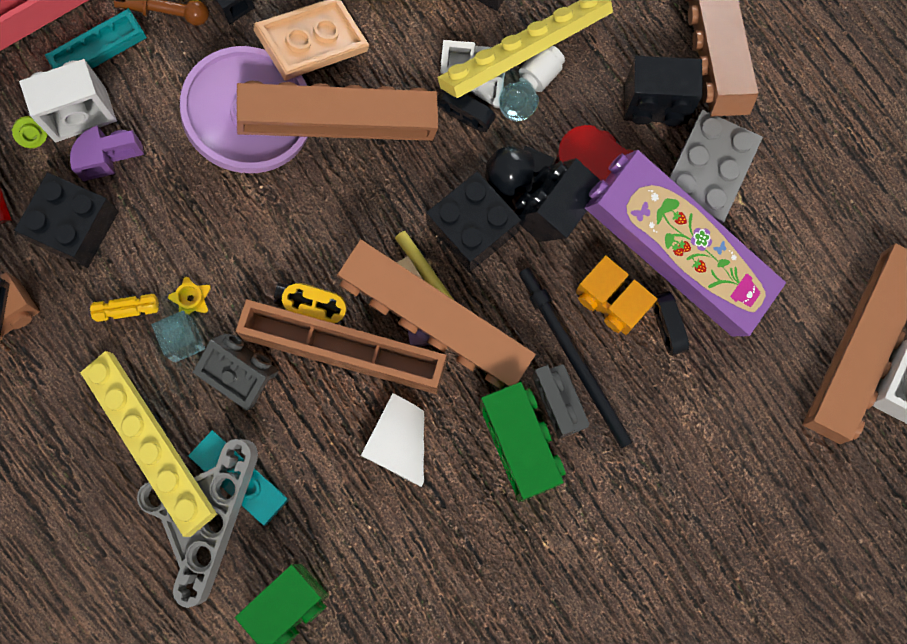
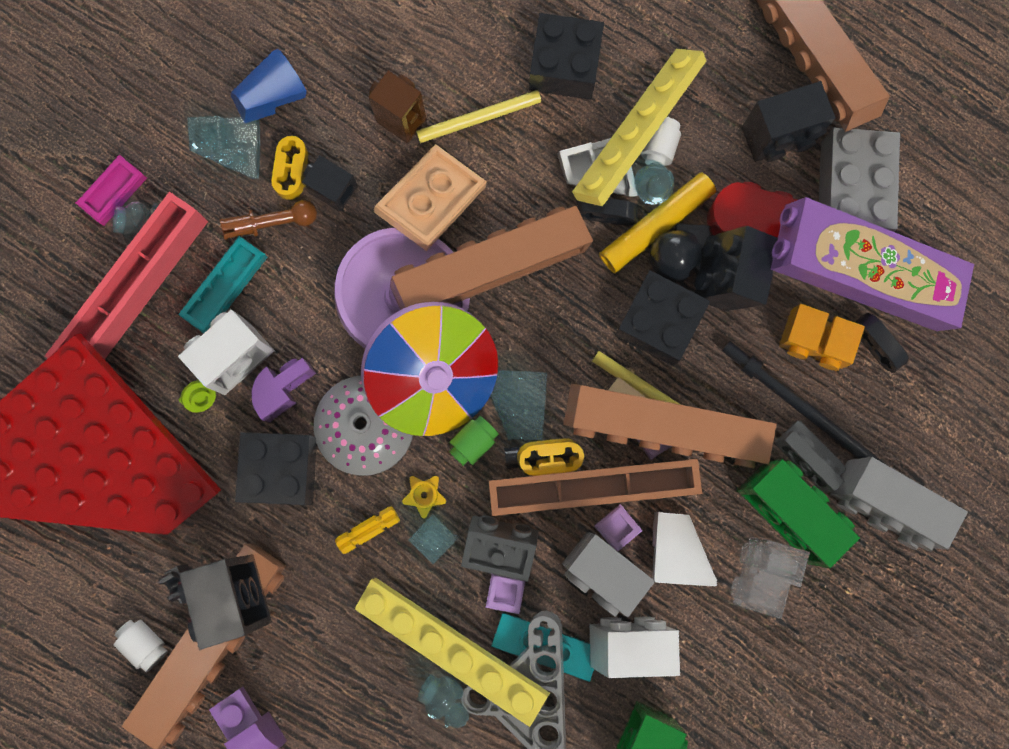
camera: 20 degrees left, 5 degrees up
(116, 483) = (440, 699): none -> clear light blue animal
(175, 230) = (346, 447): none -> light grey dish
(223, 415) = (505, 594): none -> lavender tile
(238, 181) = (429, 368): none -> dish
(253, 265) = (473, 441): none -> bright green brick
(312, 247) = (521, 403): none -> clear light blue slope
(312, 421) = (614, 578): none -> light grey brick
(313, 505) = (634, 648): none -> white brick
(352, 397) = (618, 528): none -> lavender tile
(469, 493) = (767, 576): none -> clear brick
(514, 134) = (657, 222): none -> yellow piece
(619, 473) = (898, 505): none -> light grey brick

